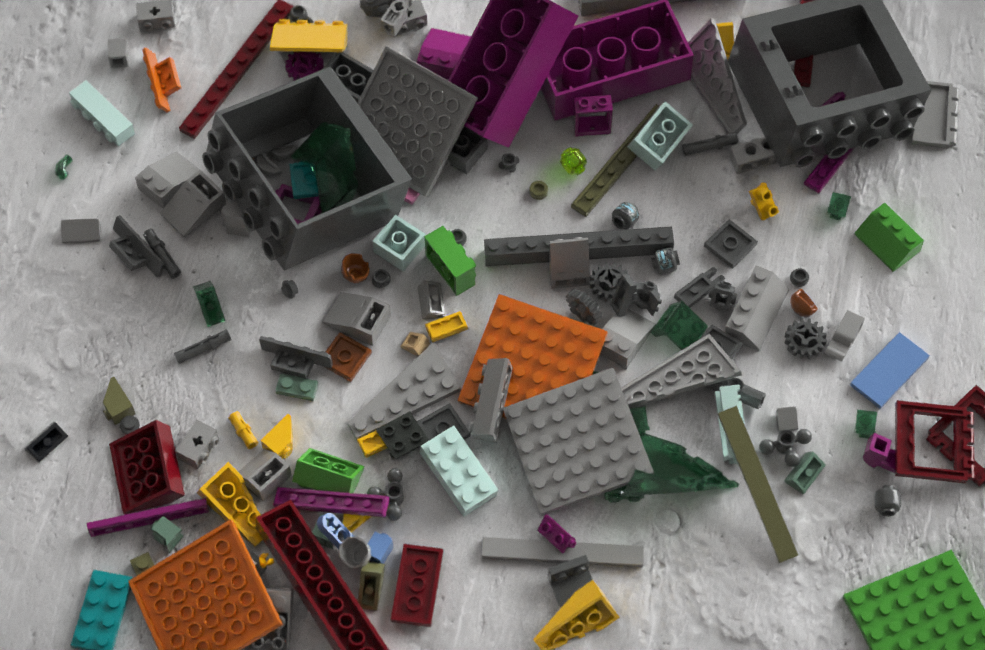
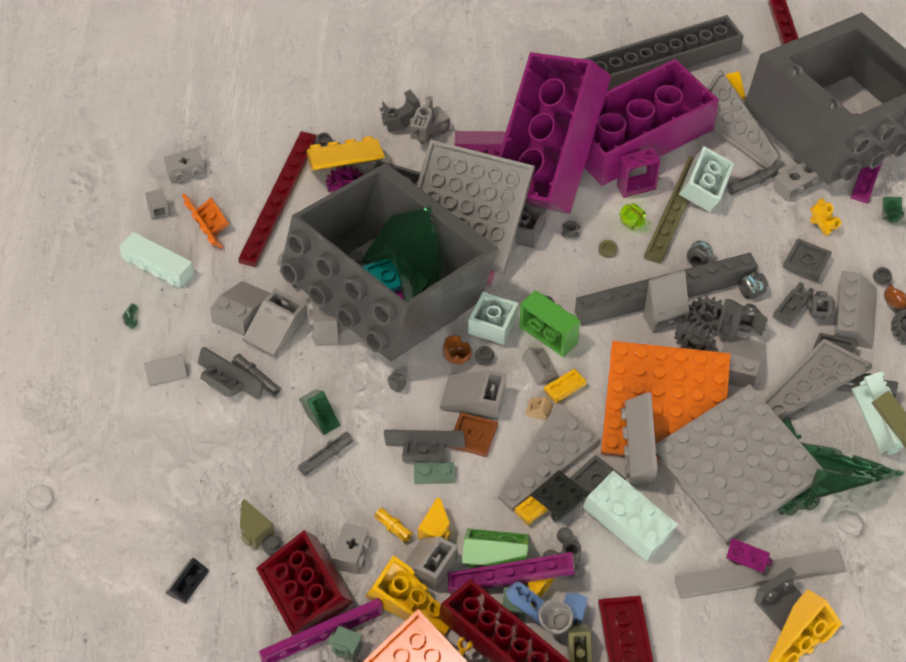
camera: 15 degrees left, 10 degrees down
(680, 325) = (790, 337): clear green bracket -> none

